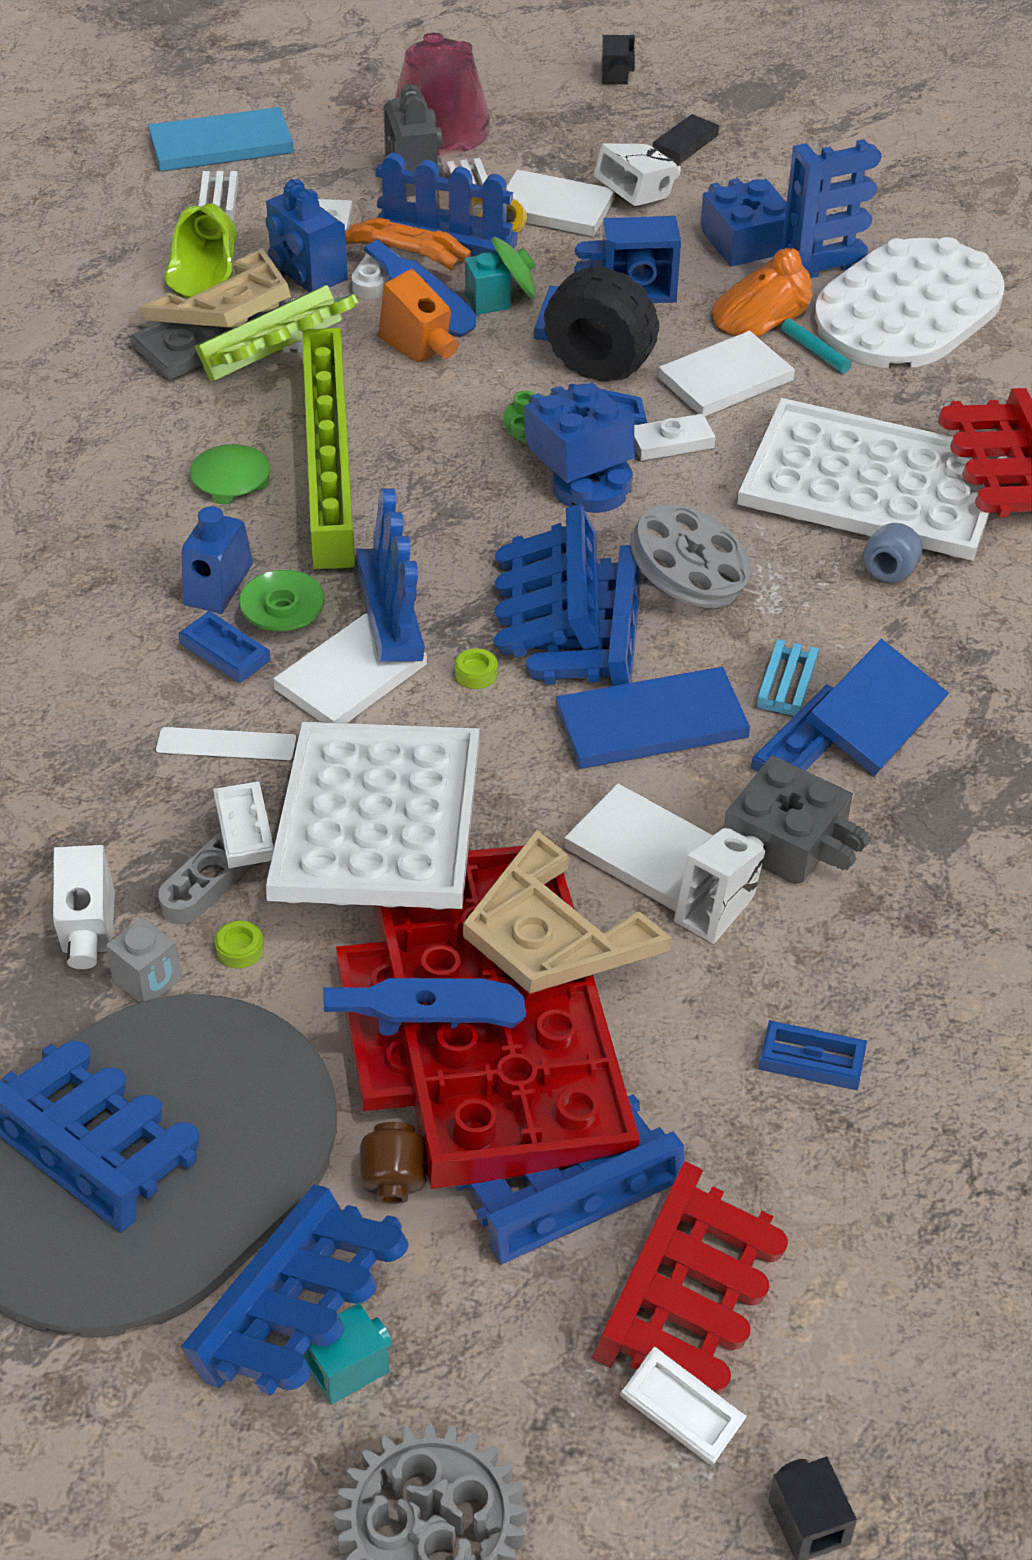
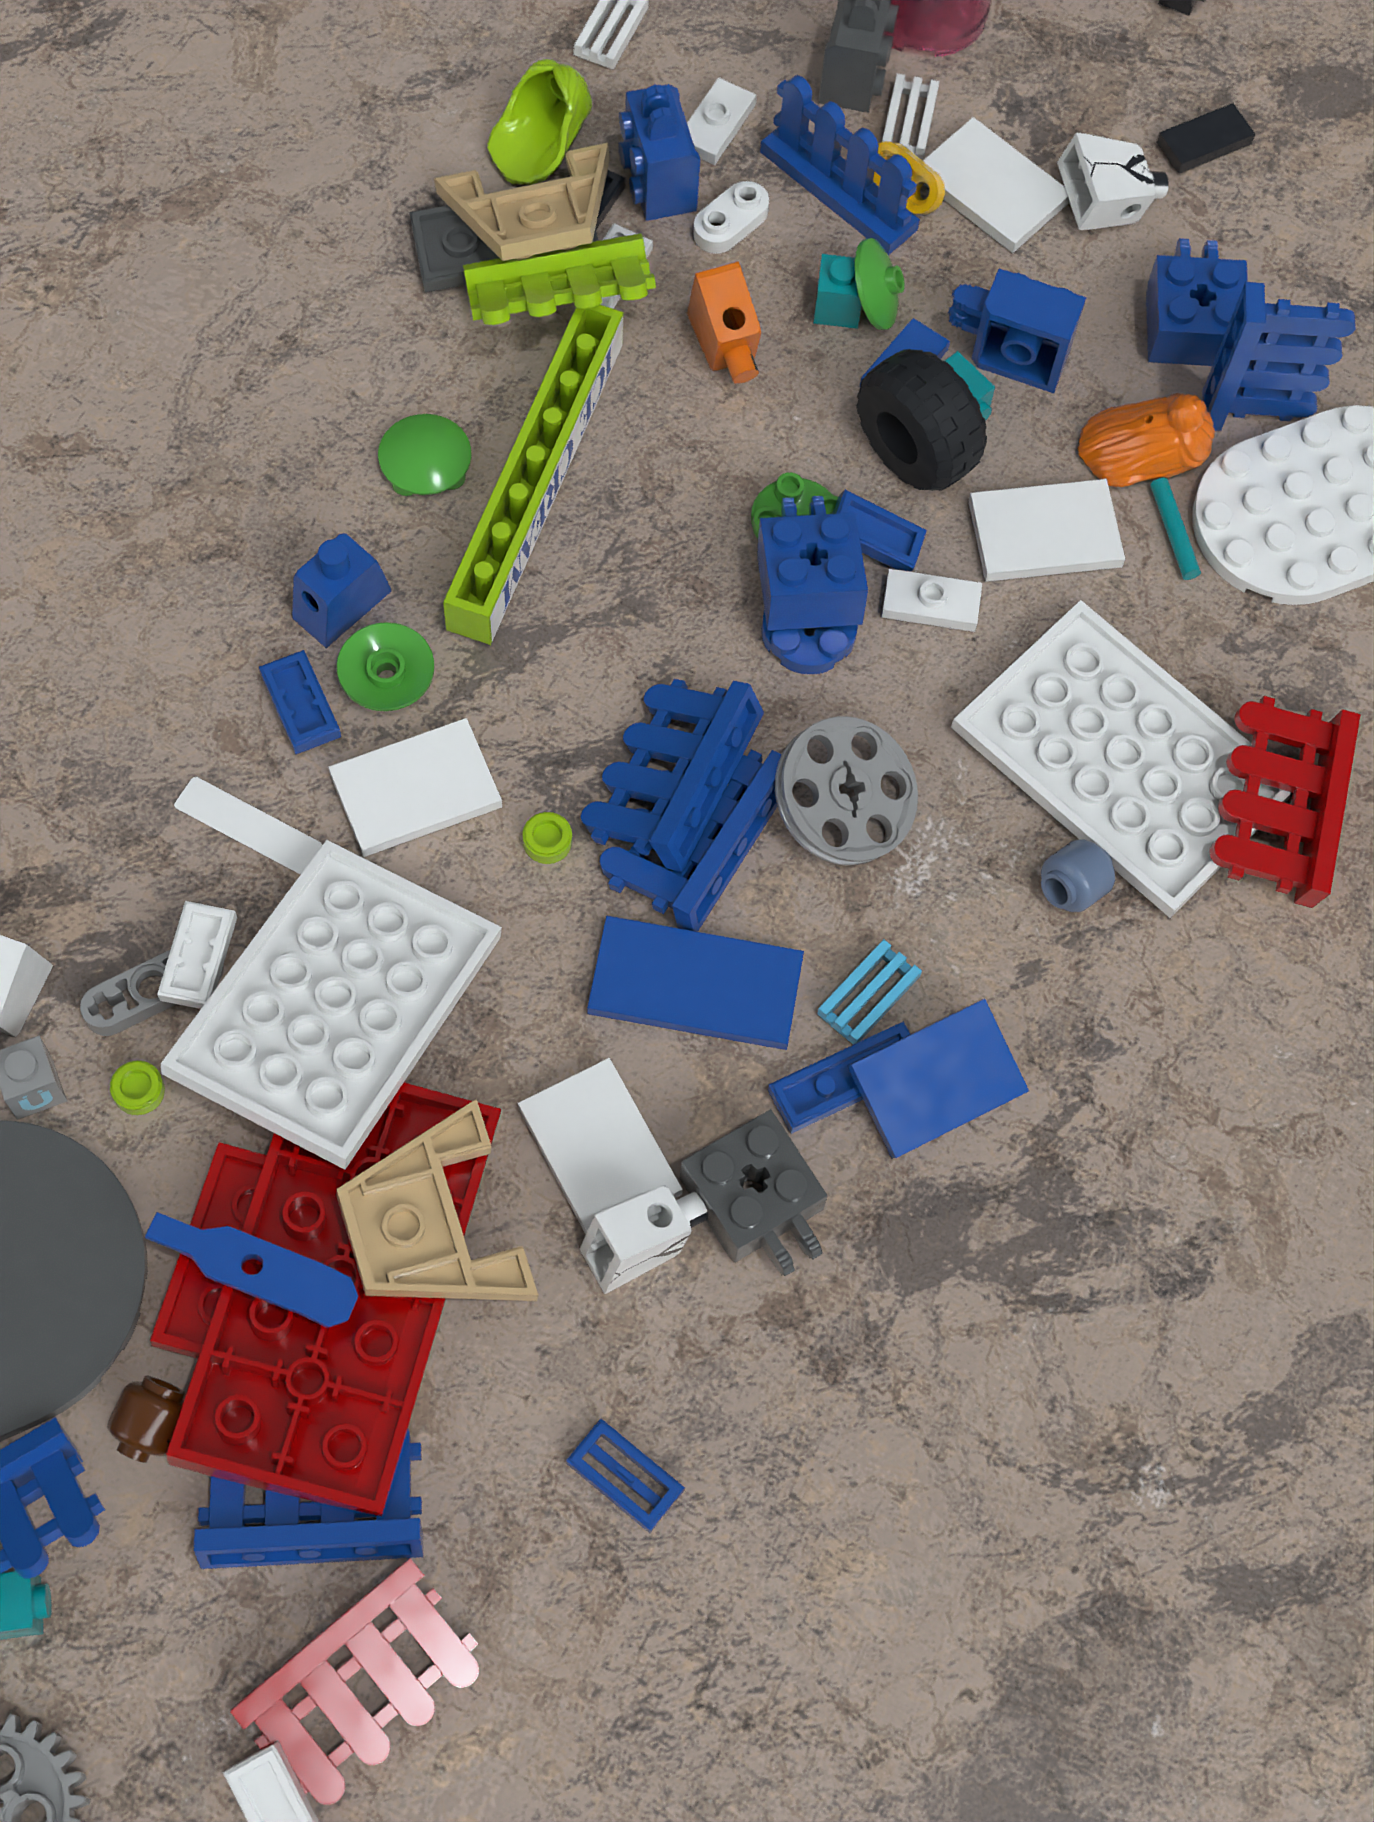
camera: 20 degrees right, 20 degrees up
(391, 585) = (496, 712): blue fence -> none
(436, 245) = (788, 202): orange piece -> none
(462, 316) = (770, 289): blue piece -> none

